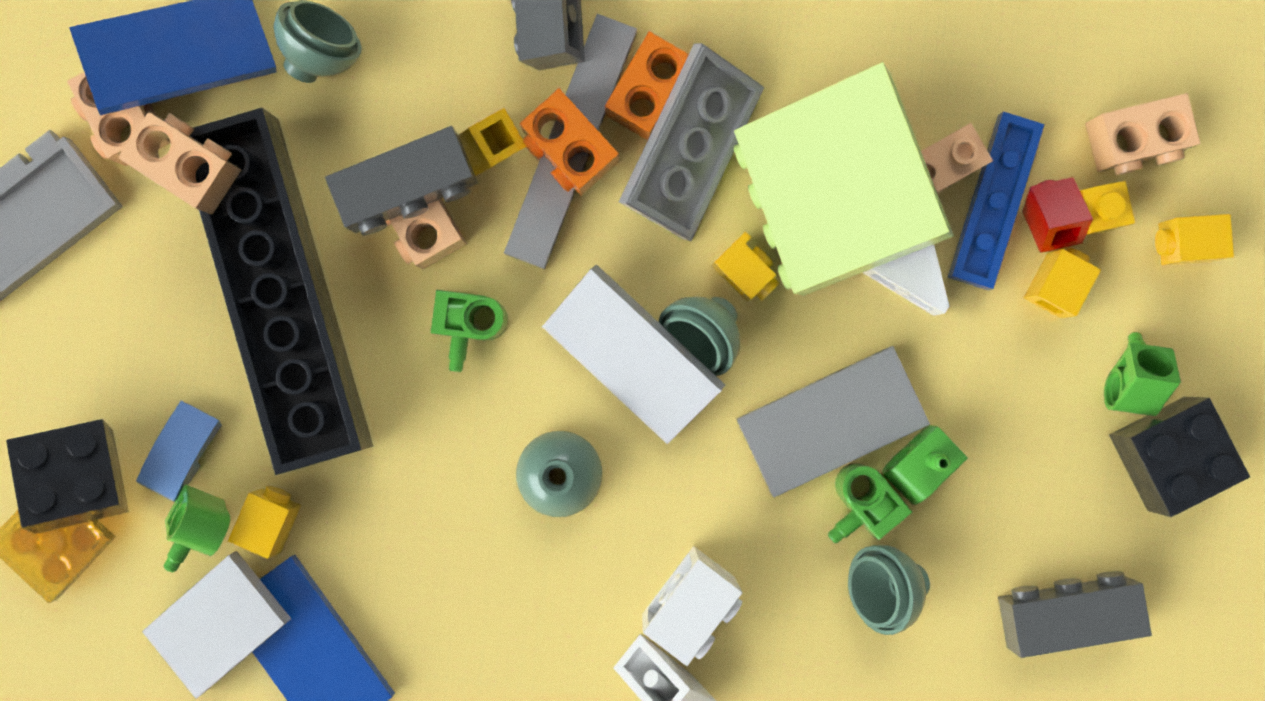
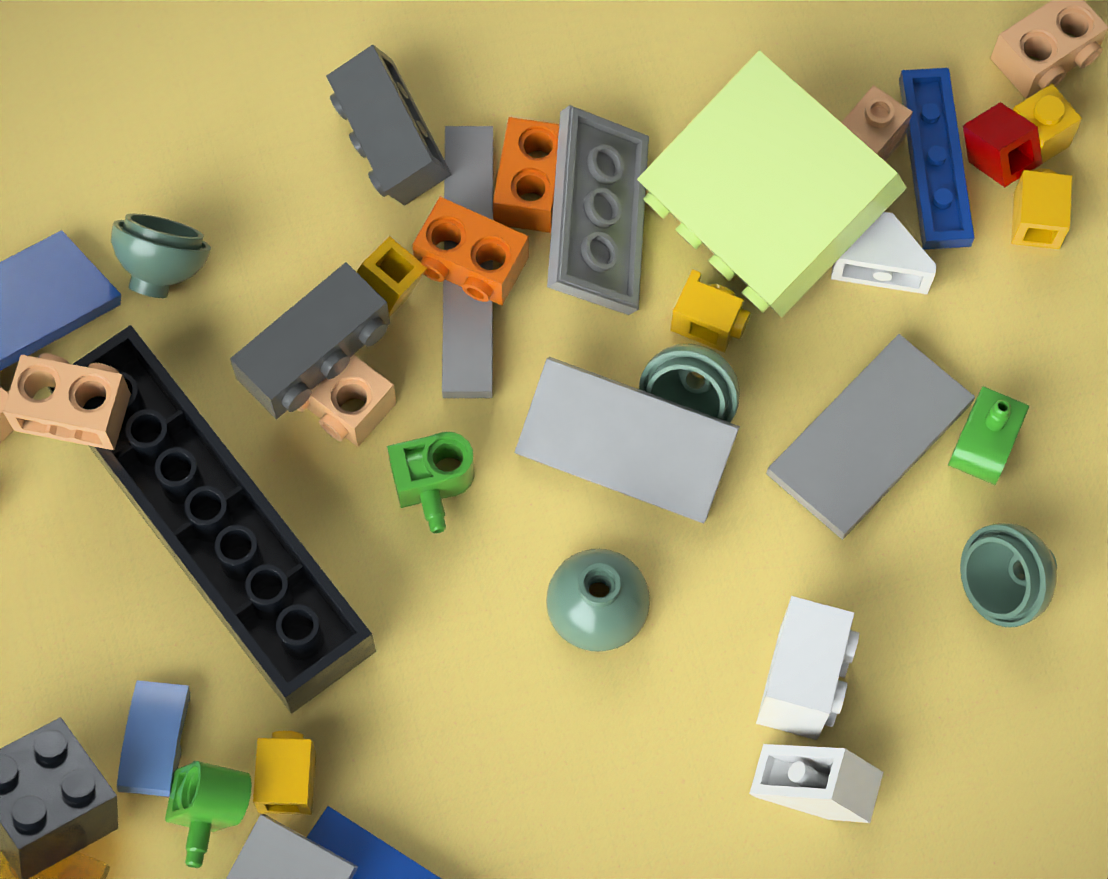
camera: 25 degrees left, 20 degrees down
(876, 510) = (955, 507): bright green piece -> none

